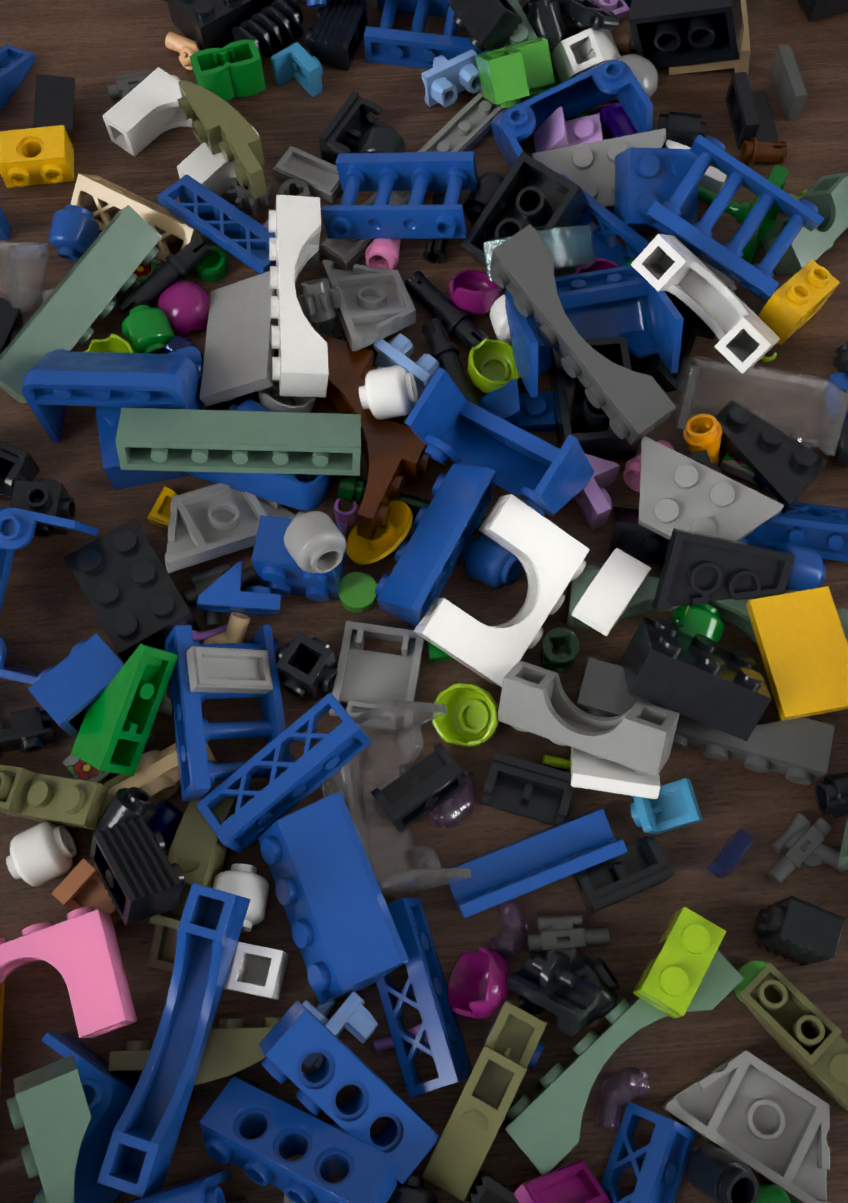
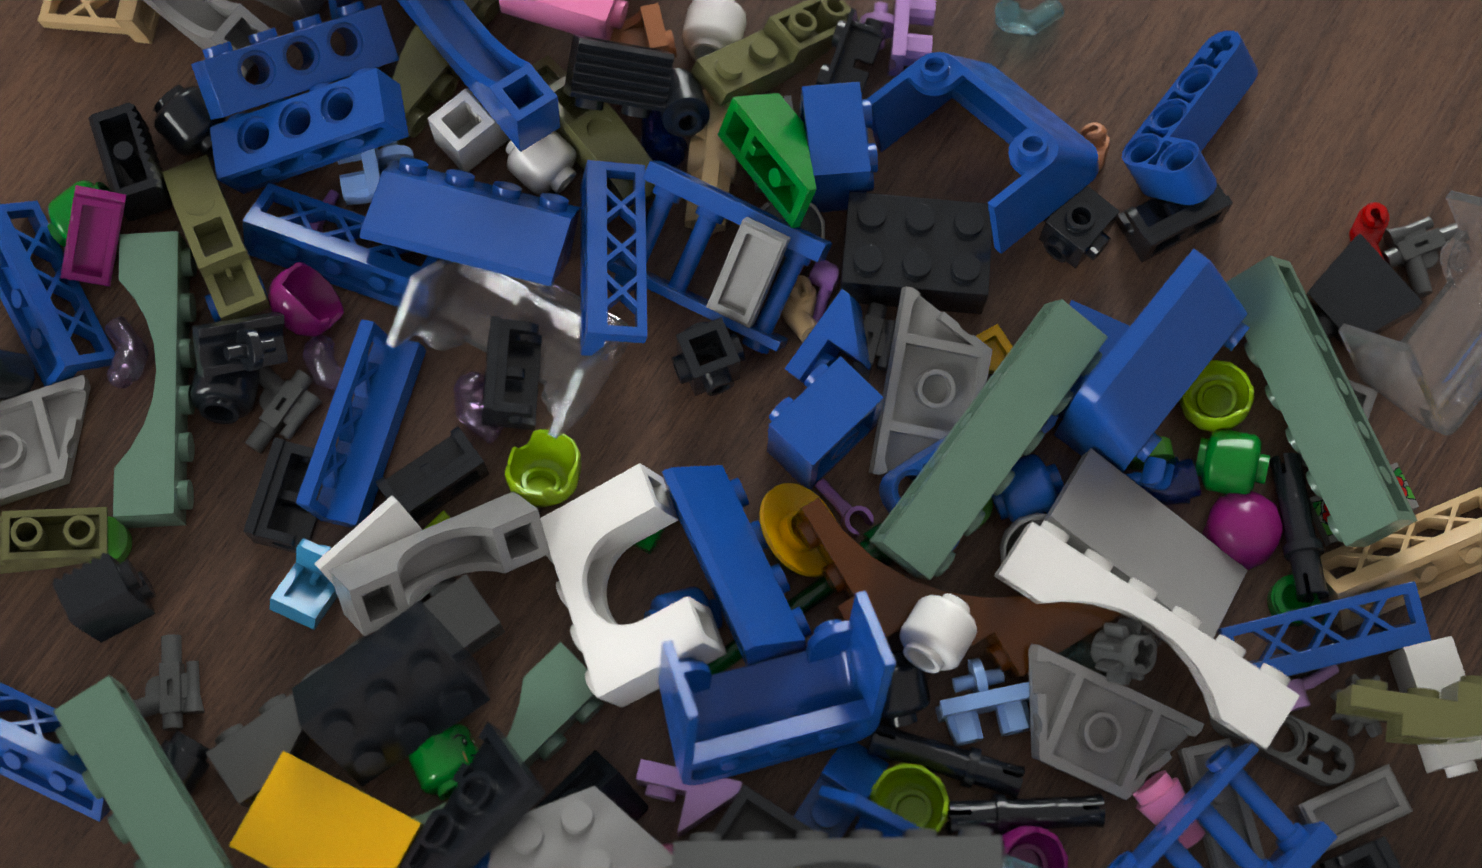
camera: 125 degrees right, 5 degrees up
(73, 231) = (1437, 469): blue head -> none
(315, 542) = (802, 414): light grey head -> none
(357, 592) = (757, 470): bright green tile -> none
(372, 677) = (654, 420): light grey container -> none
(553, 641) = (522, 606): clear green bush -> none
(611, 591) = (542, 692): white slope -> none
(679, 962) = (166, 458): lime brick -> none
(730, 854) = (221, 608): clear blue tile -> none

